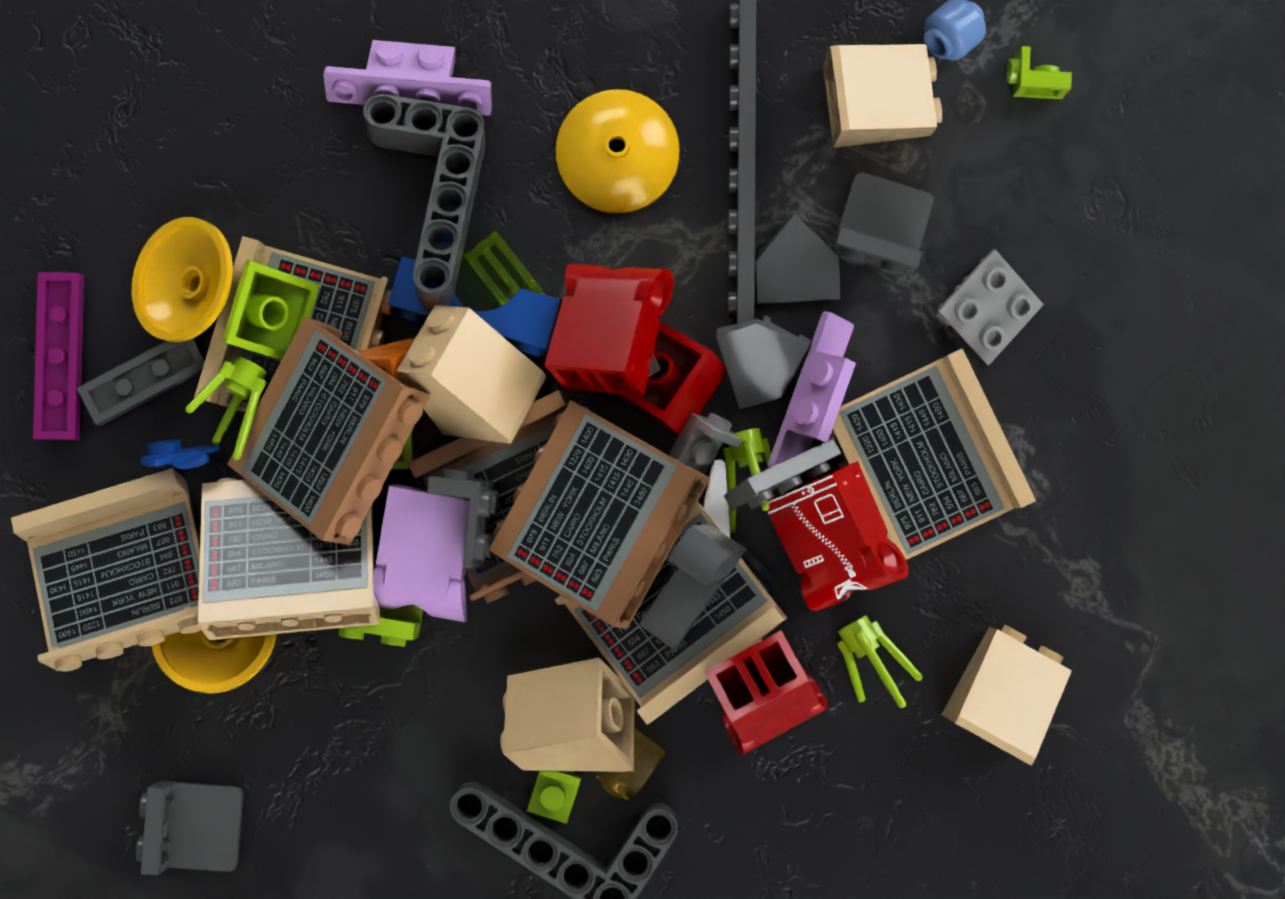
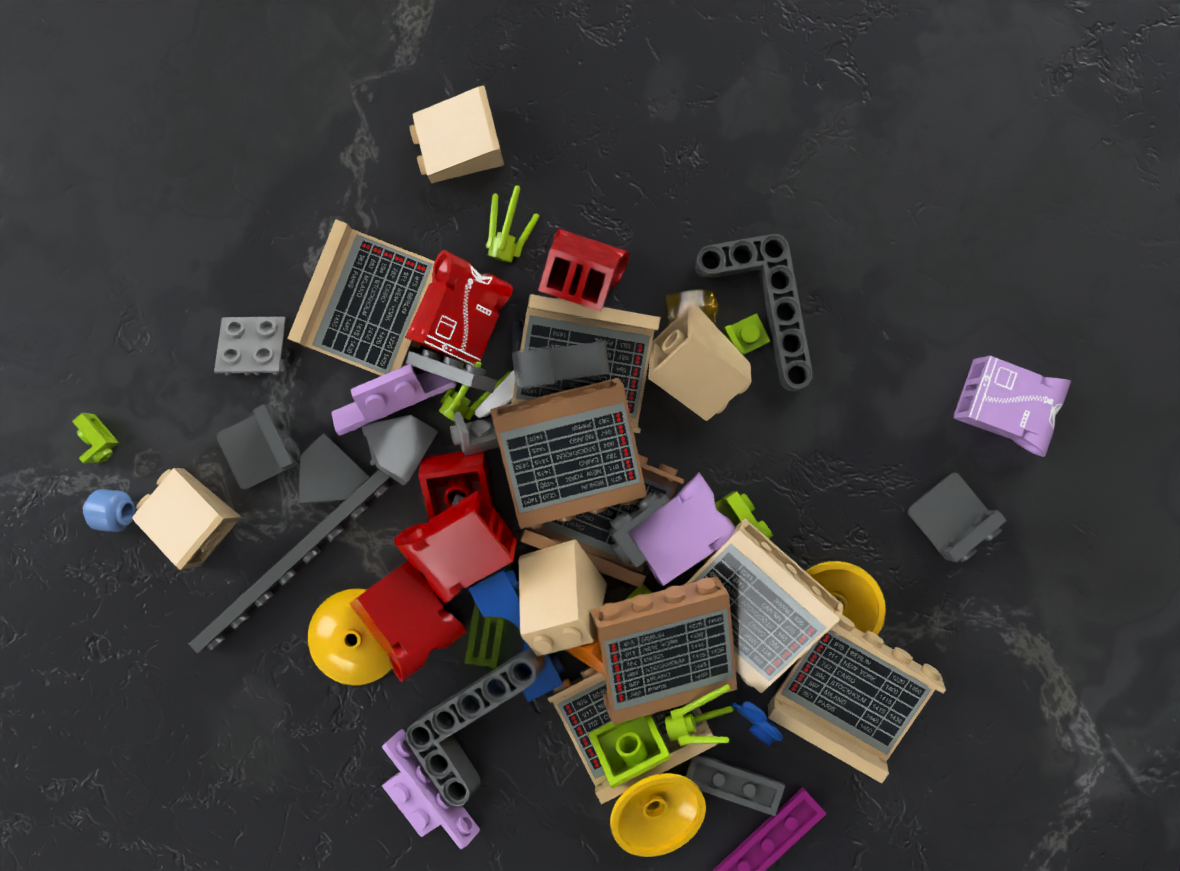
camera: 140 degrees left, 0 degrees up
(587, 214) = (407, 619): none -> red piece

